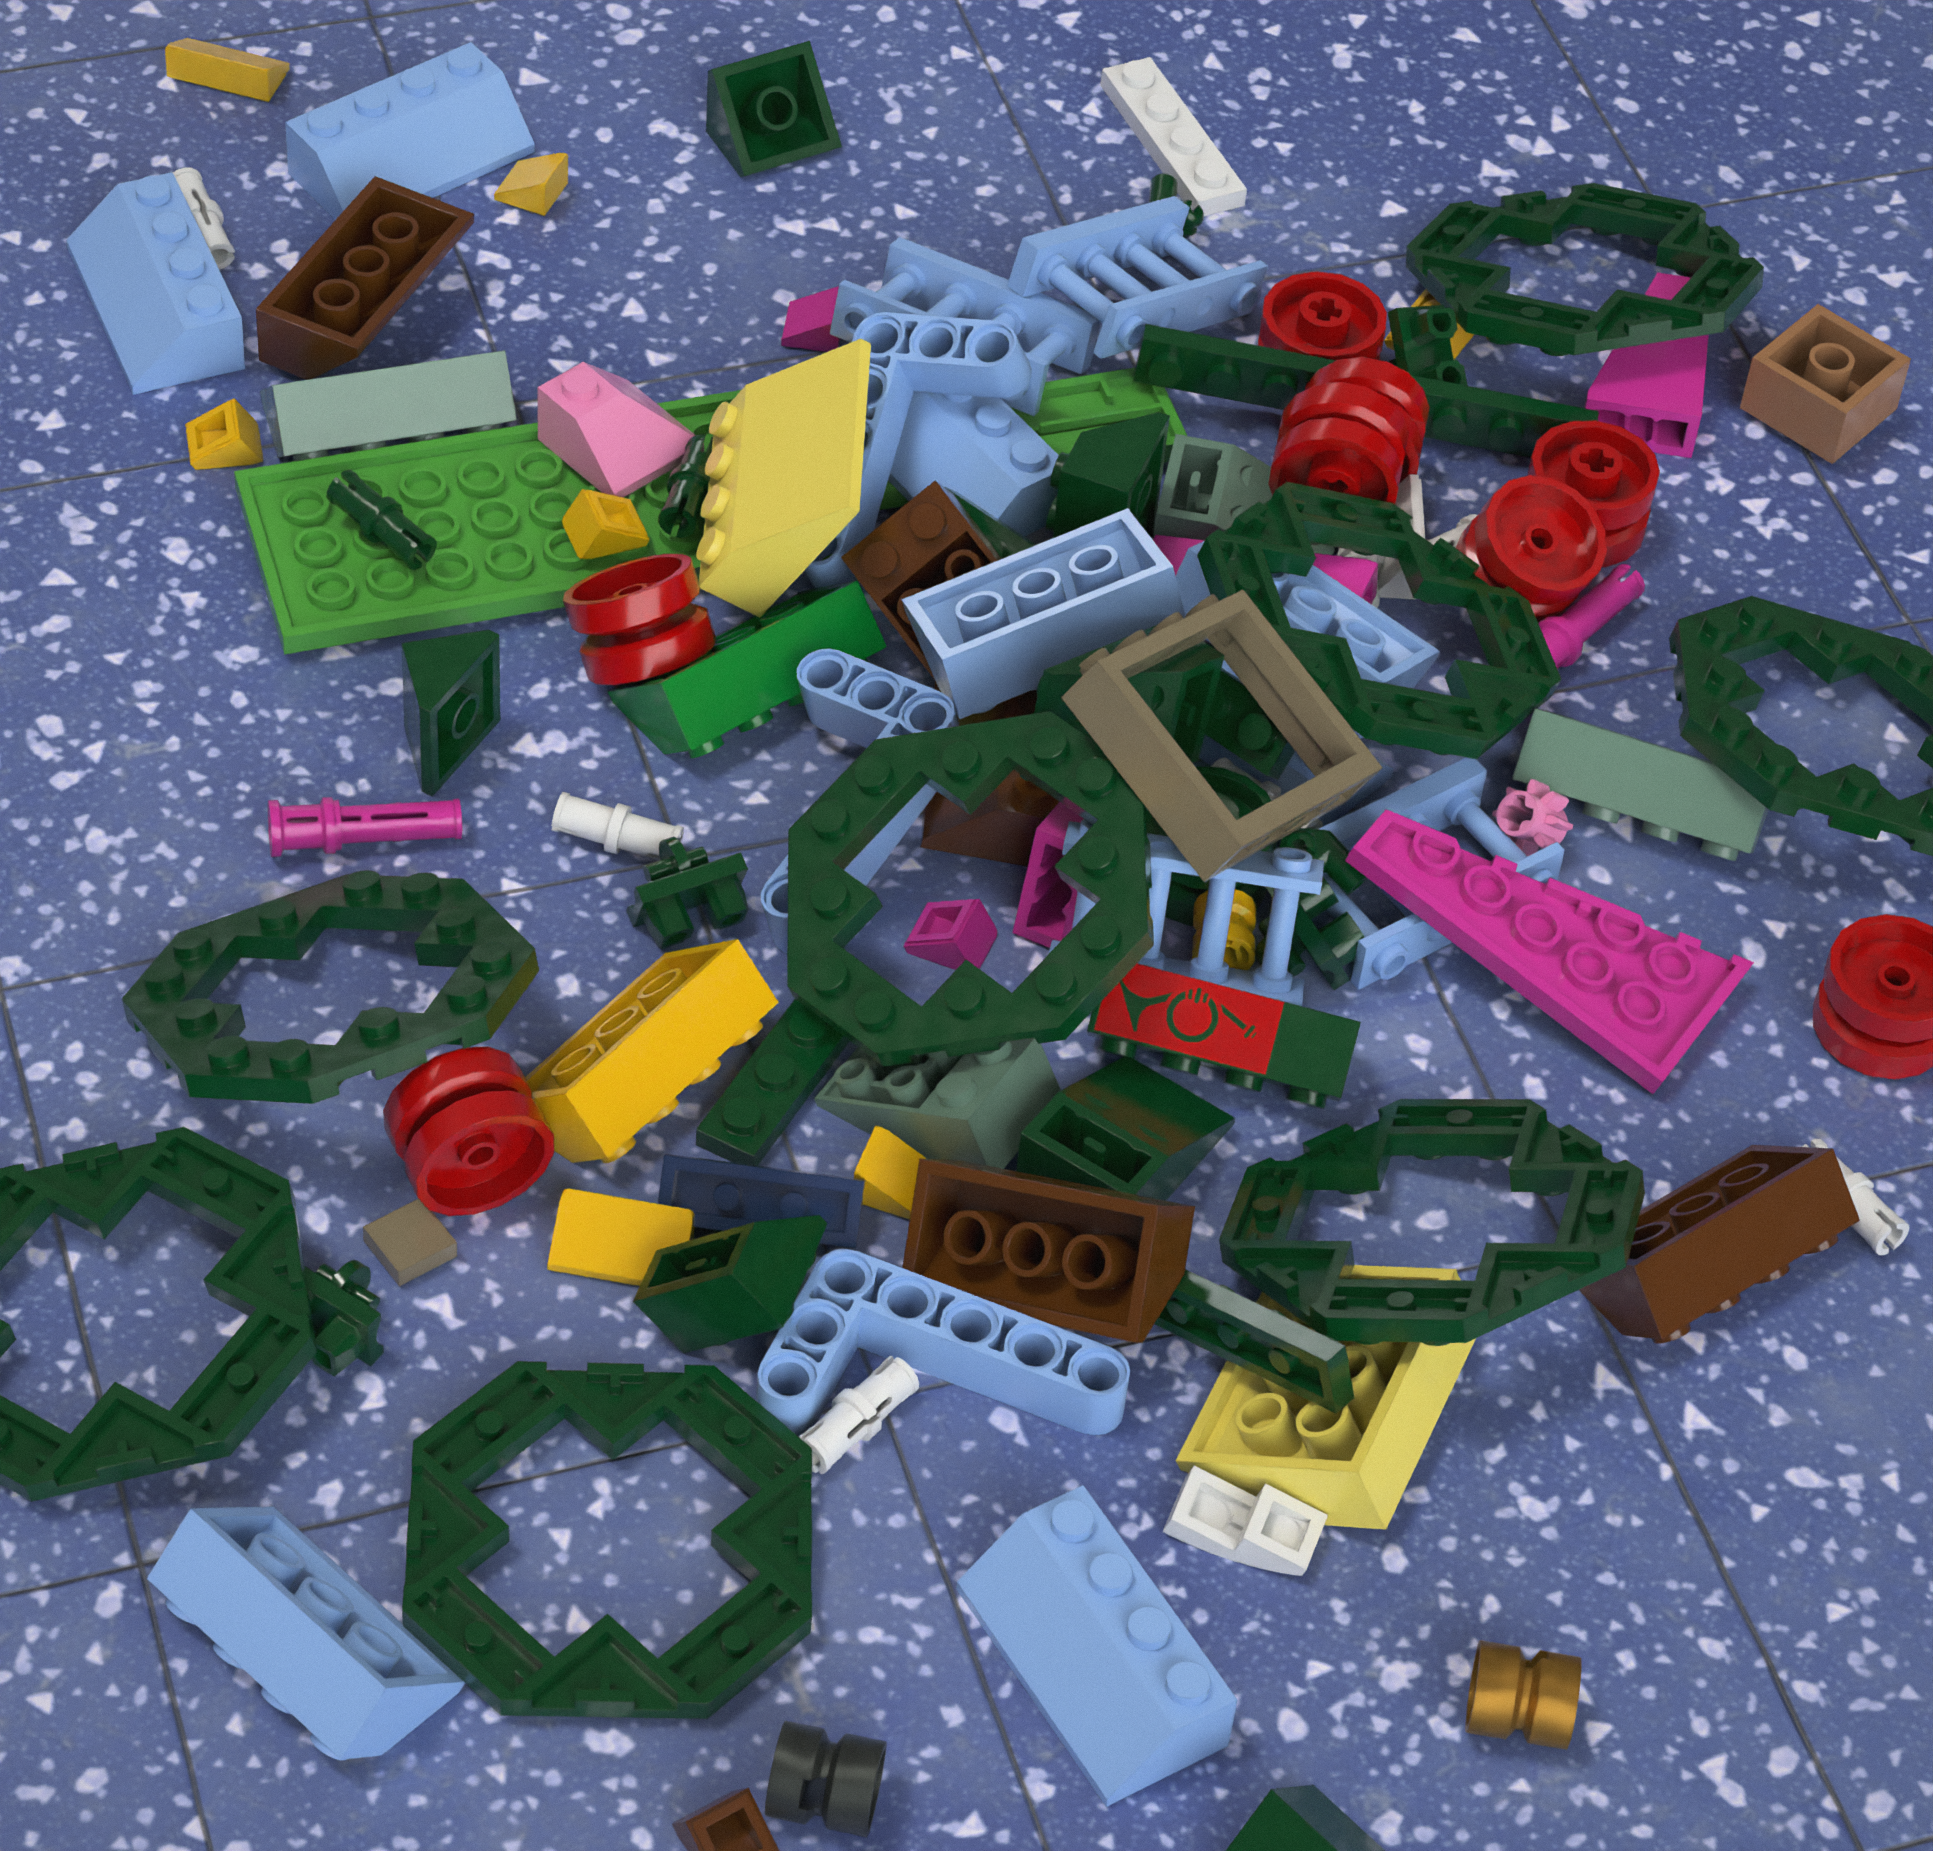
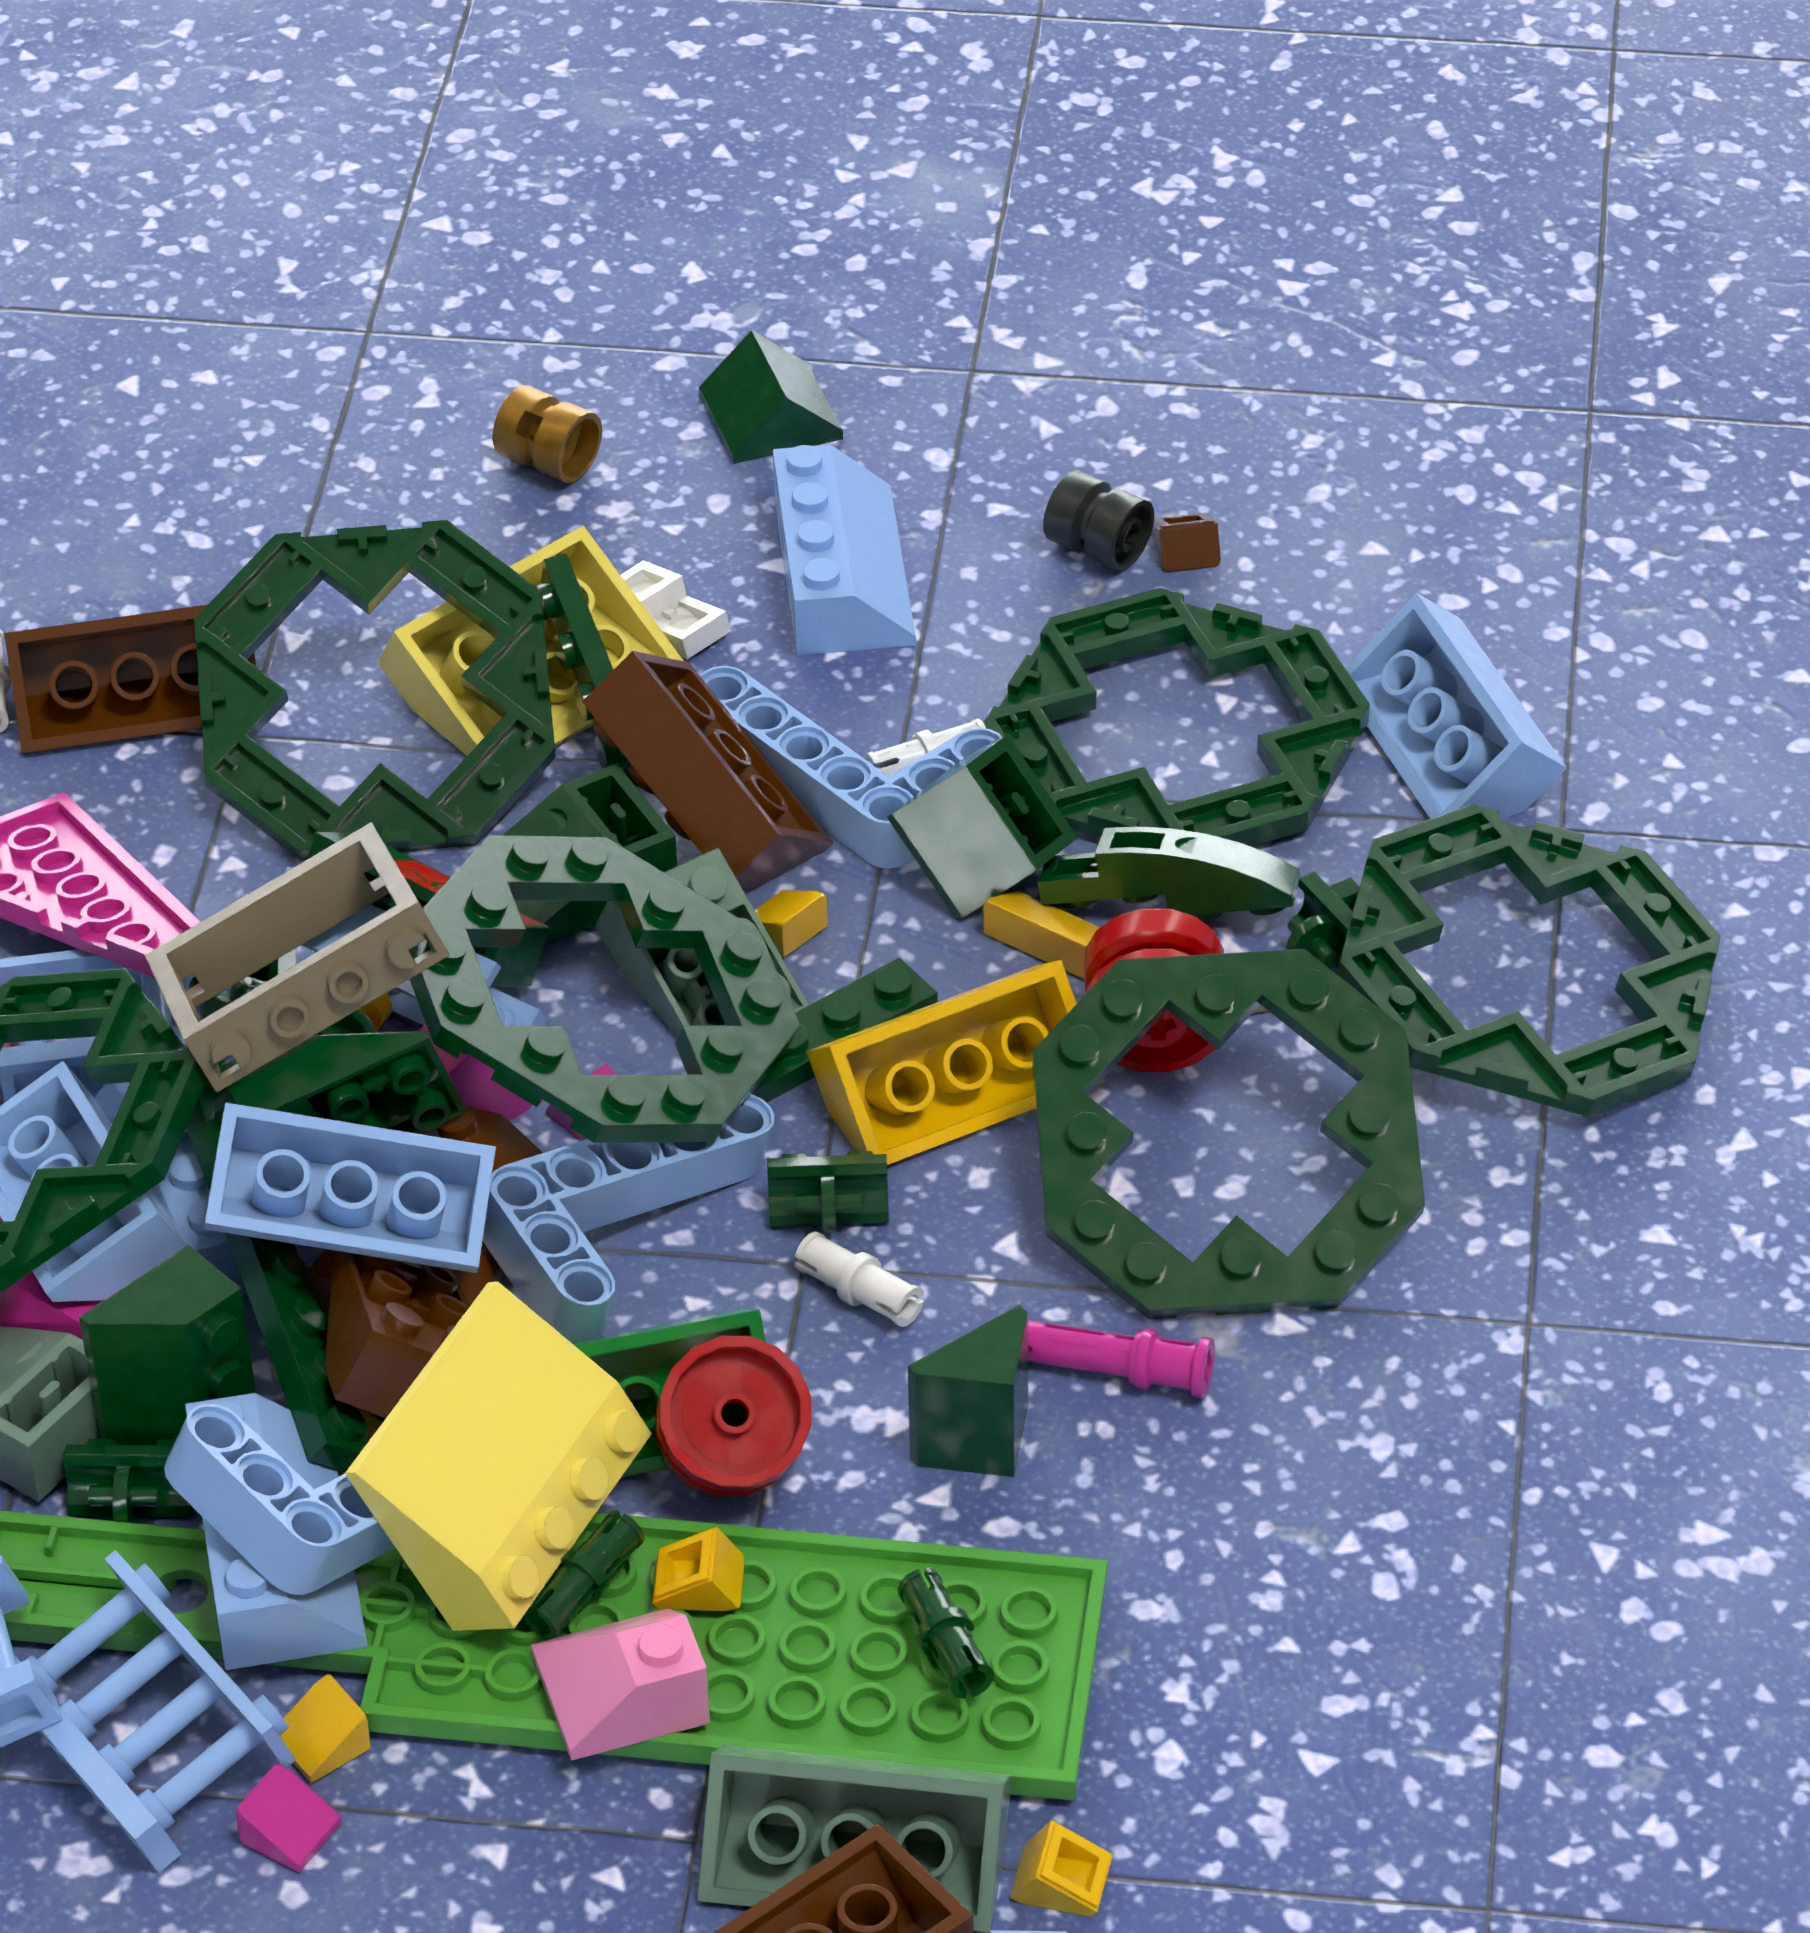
camera: 150 degrees left, 5 degrees down
(513, 1303) = (1192, 869): none -> dark green slope
(739, 1194) = (915, 917): dark blue plate -> none

